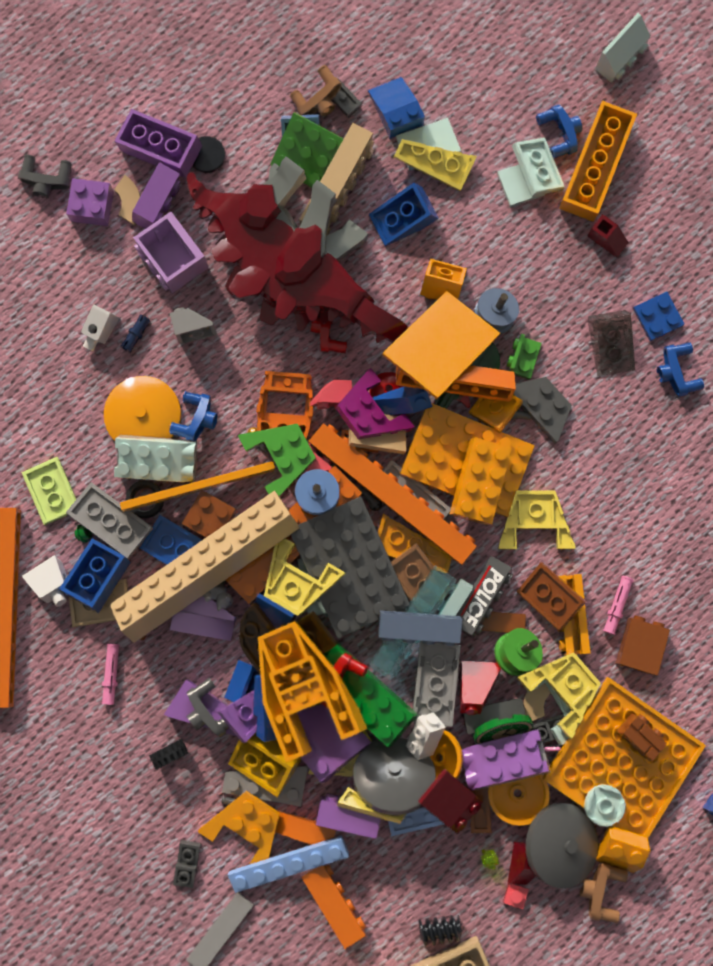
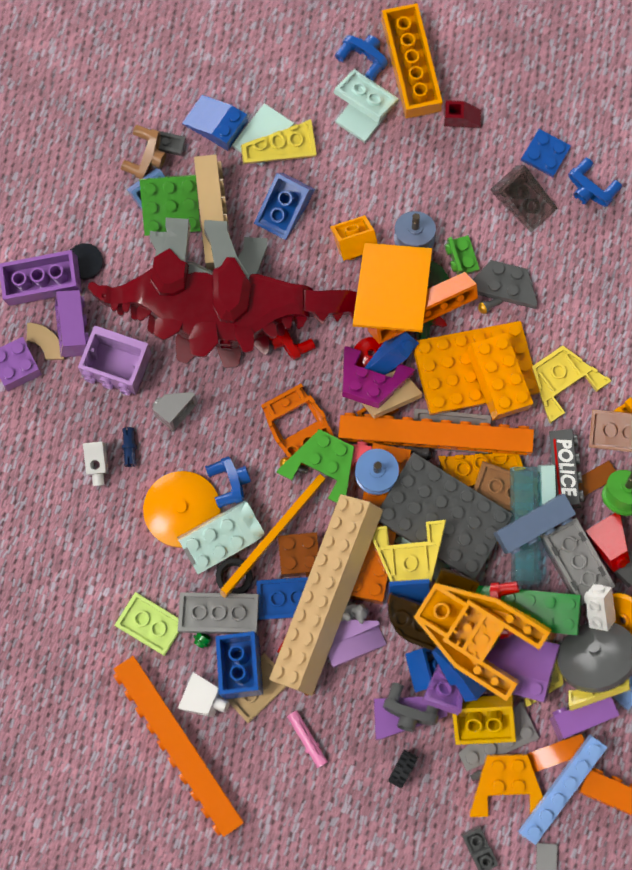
camera: 30 degrees left, 5 degrees down
(331, 394) = (329, 387): coral slope -> none
(495, 412) = (471, 315): light orange tile -> none

